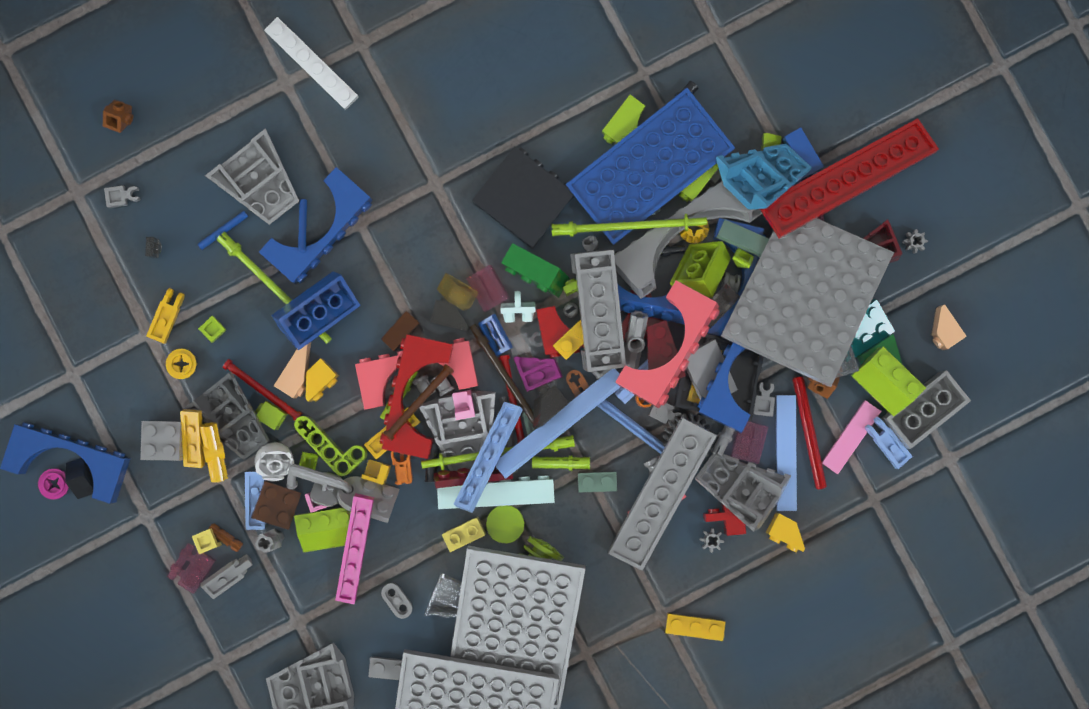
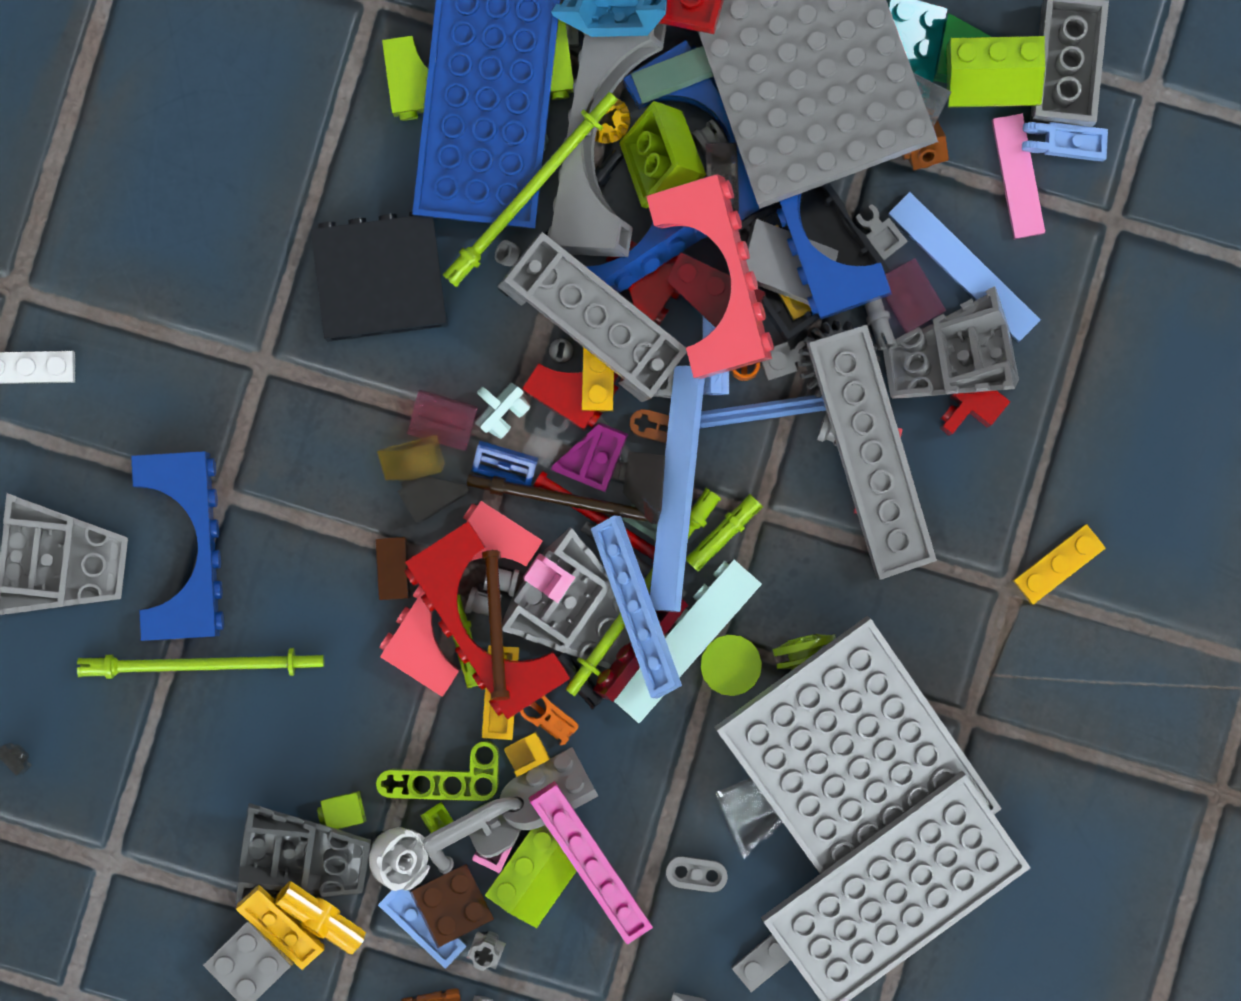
camera: 45 degrees left, 0 degrees up
(165, 317) = (109, 823): yellow hinge -> none
(176, 356) = (180, 872): yellow gear -> none
(212, 329) = (176, 782): lime plate -> none
(225, 228) = (73, 655): blue bar -> none
(261, 389) = (304, 793): red bar -> none
(293, 378) = (322, 736): light nougat slope -> none
(302, 225) = (161, 561): blue bar -> none
(316, 310) = (273, 640): blue slope -> none
(318, 379) = (354, 715): yellow slope -> none
(463, 534) = (696, 723): light yellow brick -> none
(535, 270) = (475, 346): green wedge -> none
(571, 287) = (535, 324): lime plate -> none
(597, 482) = (786, 513): sand green plate -> none
(636, 330) = (658, 298): light grey piece -> none
(717, 540) = (985, 442): light grey gear -> none
(742, 259) = (696, 98): lime slope -> none
(785, 530) = (1053, 353): yellow slope -> none
(809, 432) = (967, 218): red axle -> none

